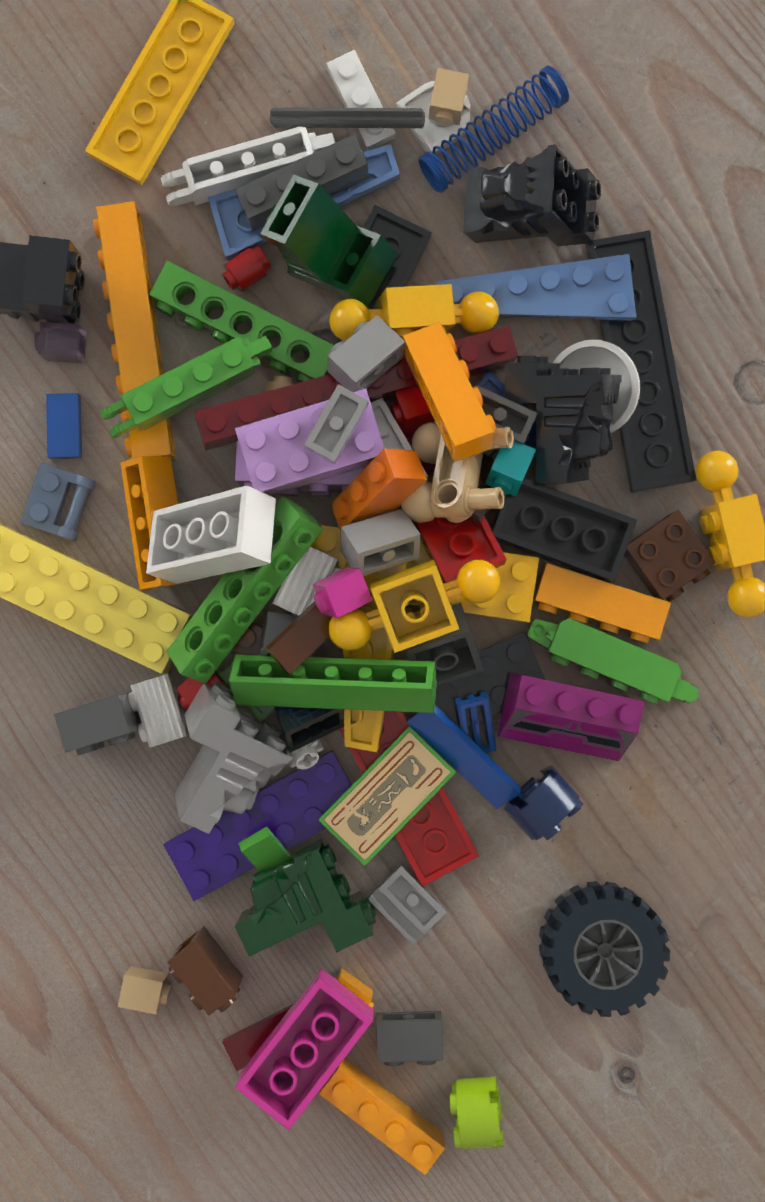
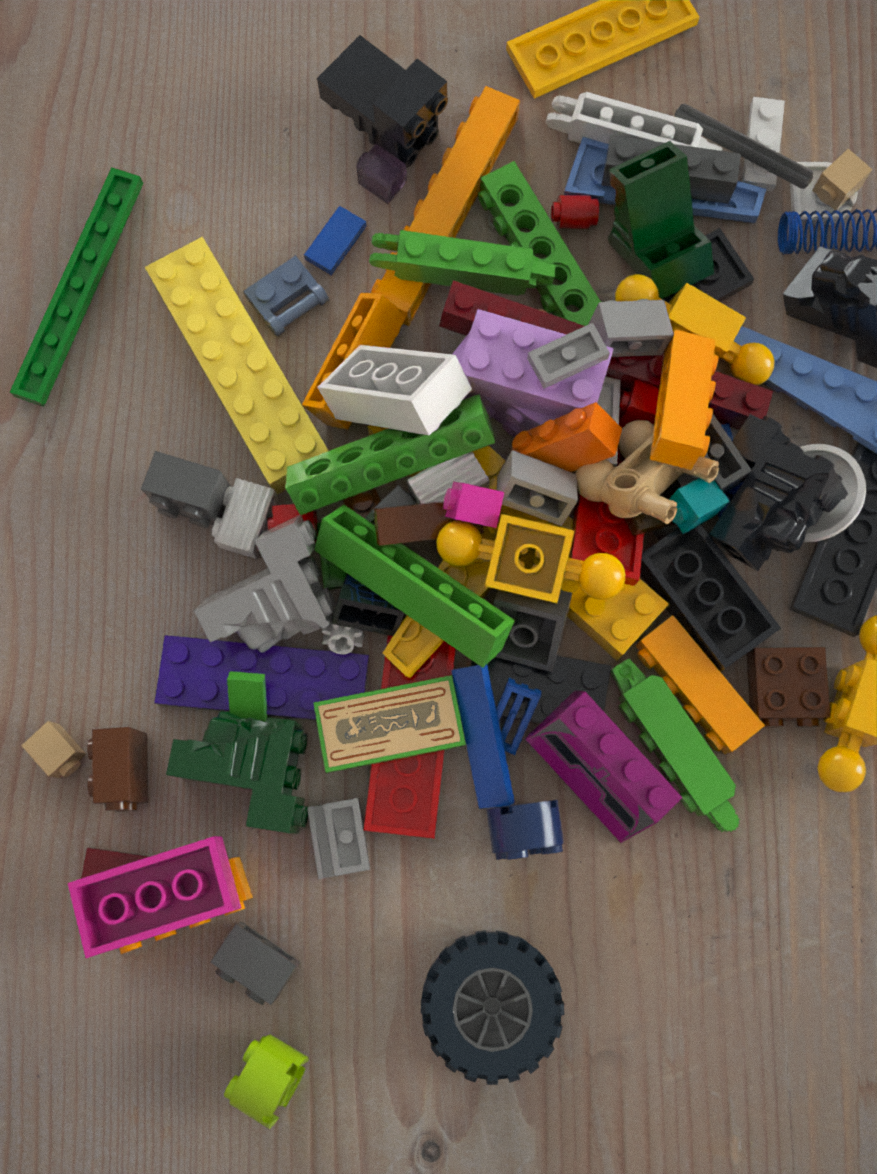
camera: 35 degrees right, 10 degrees down
(384, 1116) = (180, 1020): light orange brick -> none

